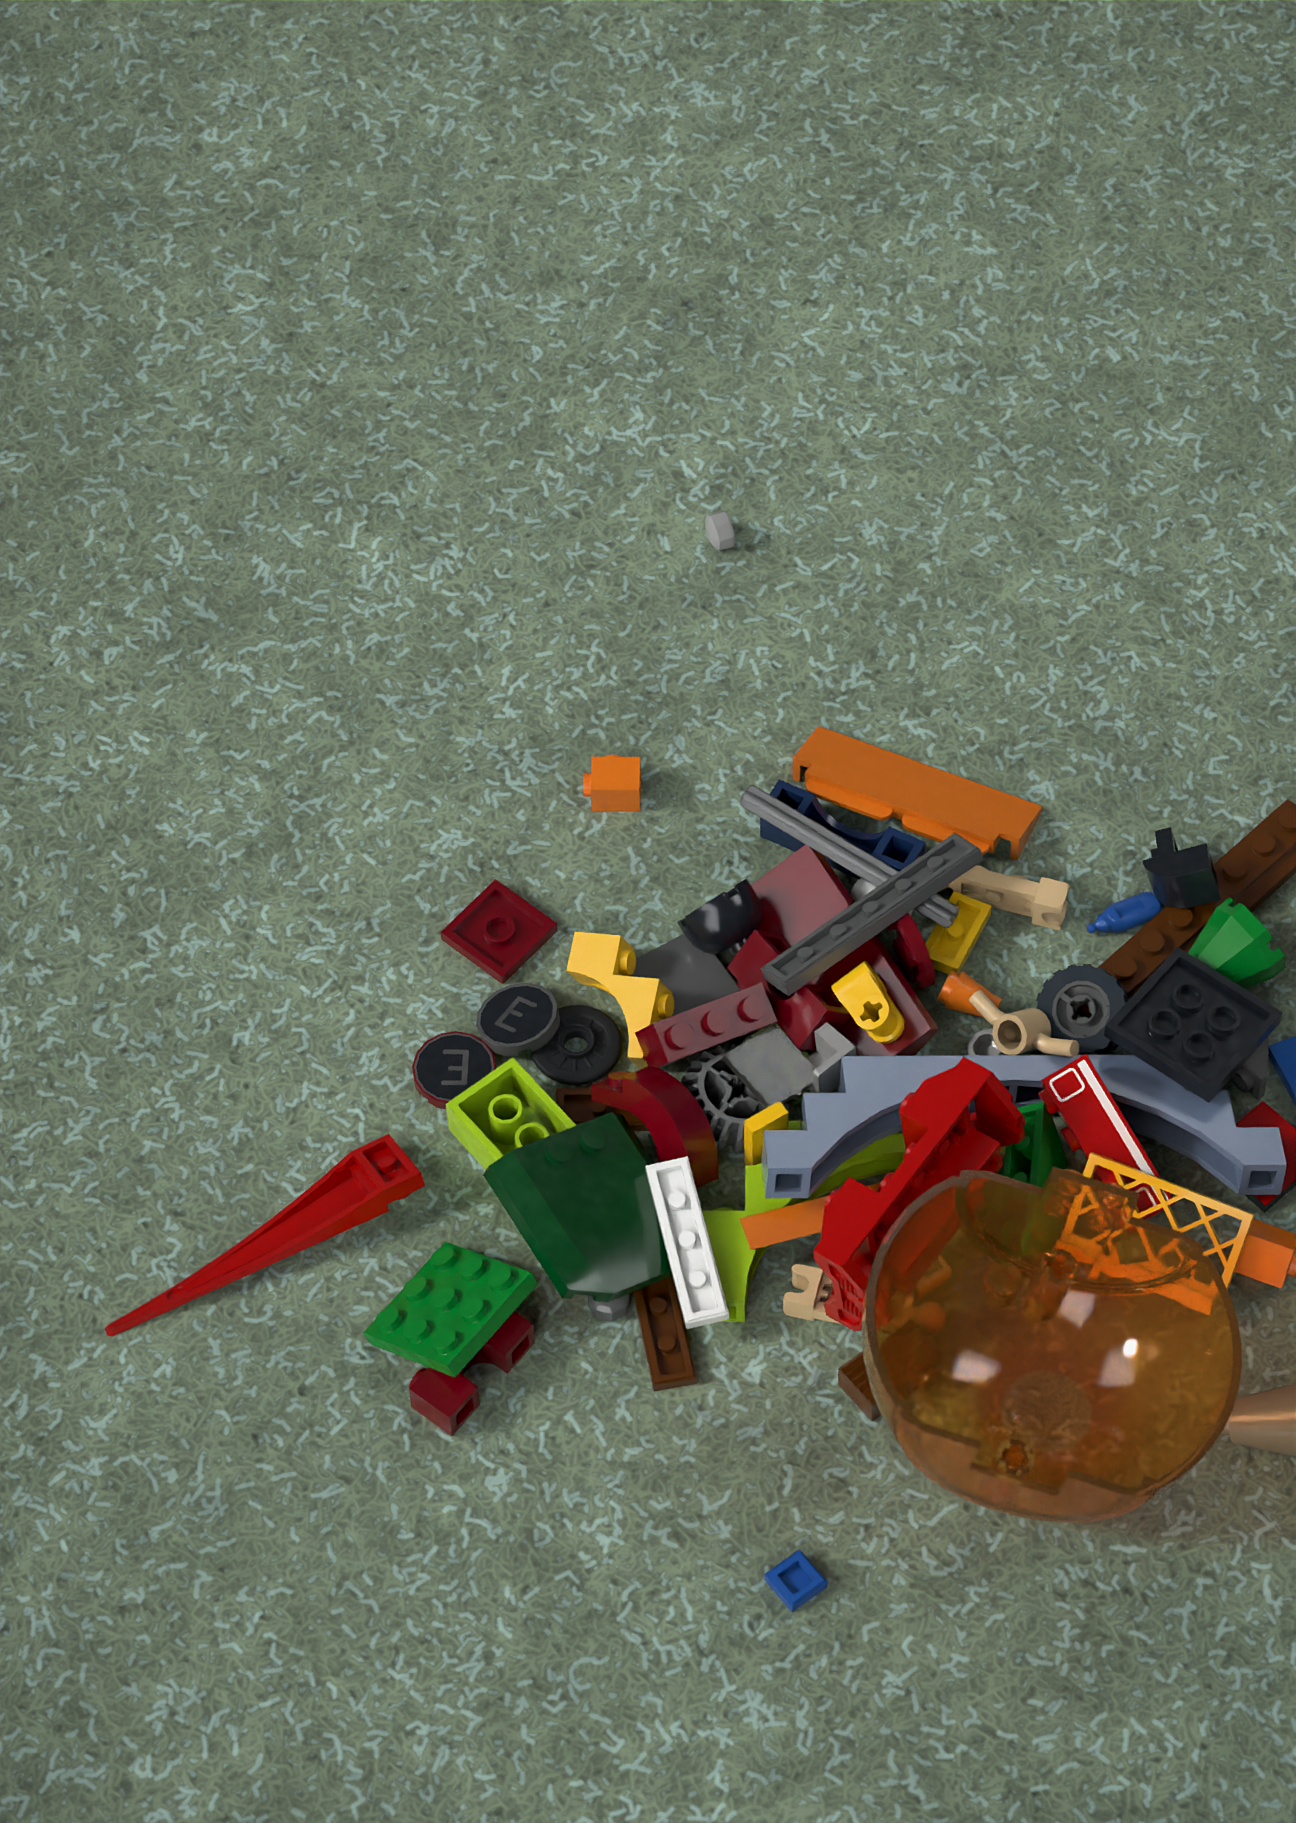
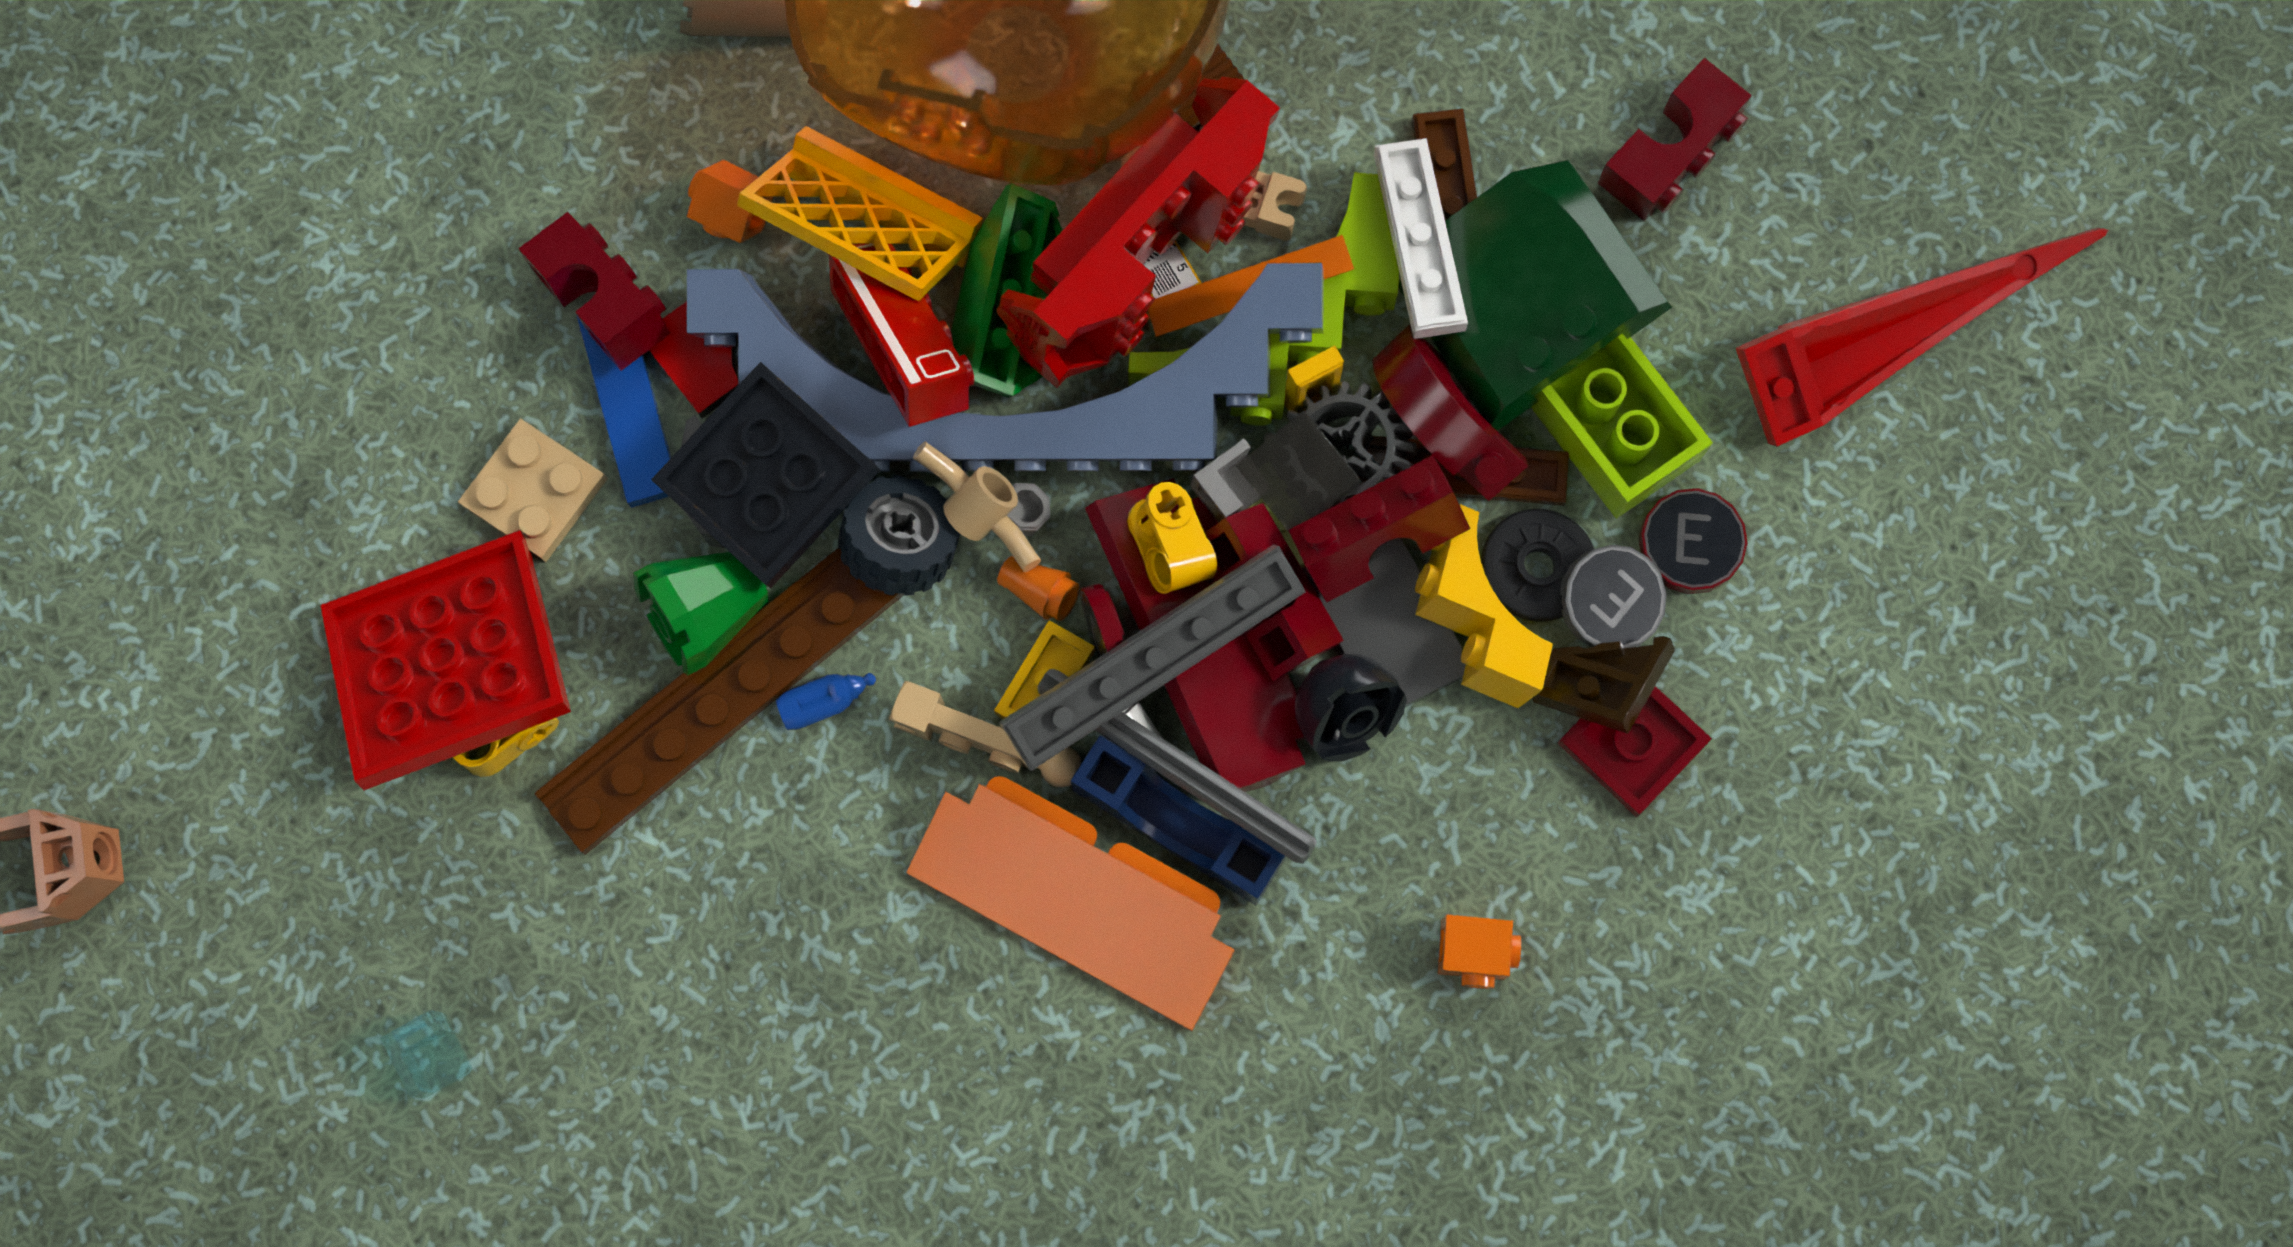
camera: 175 degrees left, 20 degrees up
(450, 1309) = (1702, 194): green plate -> none
(525, 953) = (1604, 681): none -> dark brown wing
(1181, 876) = (744, 714): black brick -> none

